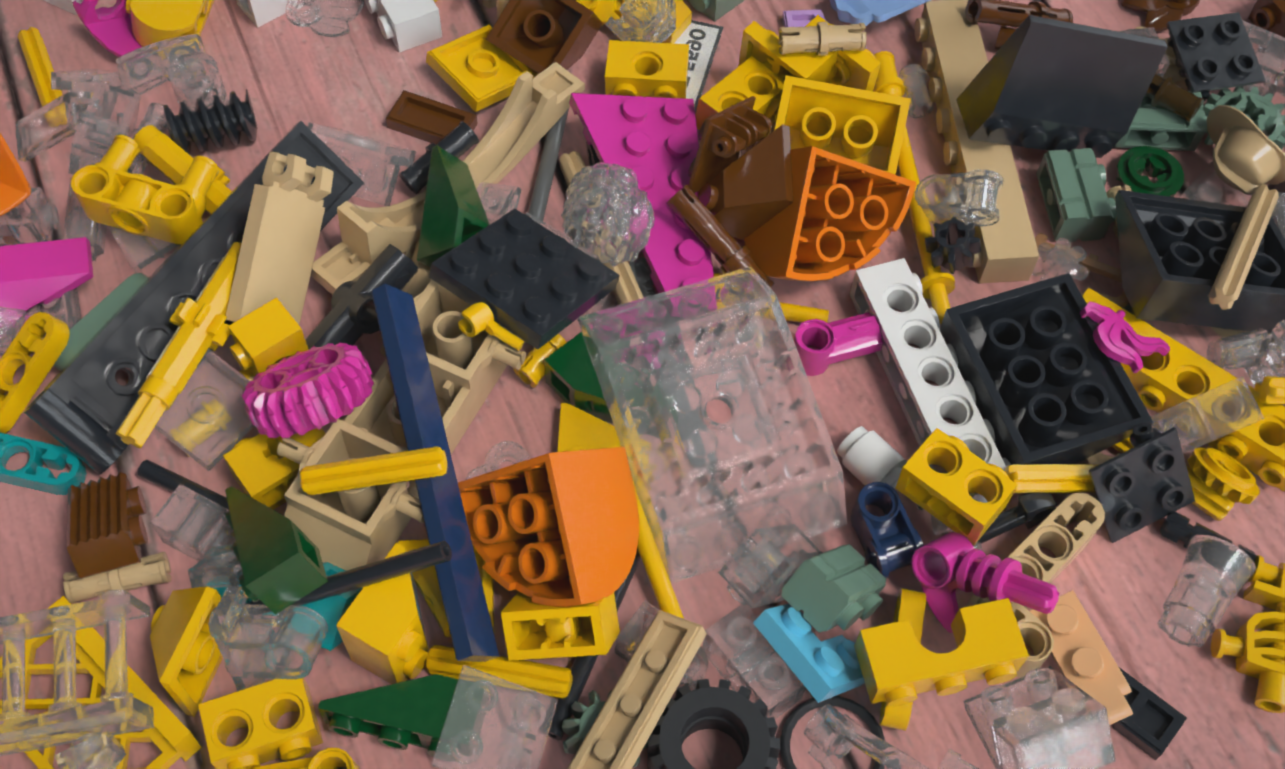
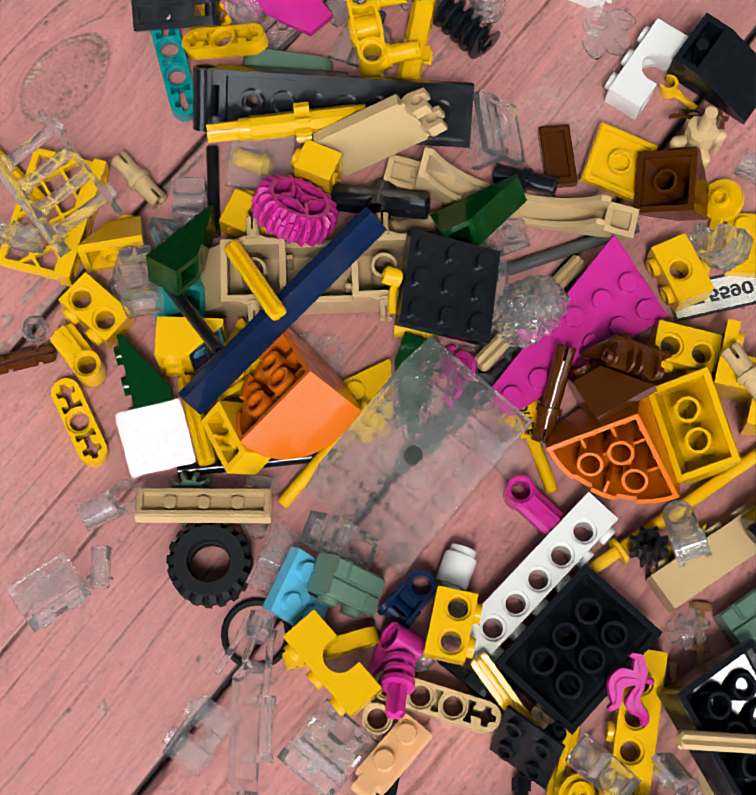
camera: 60 degrees right, 15 degrees up
(105, 525) = (160, 153): reddish brown brick -> none

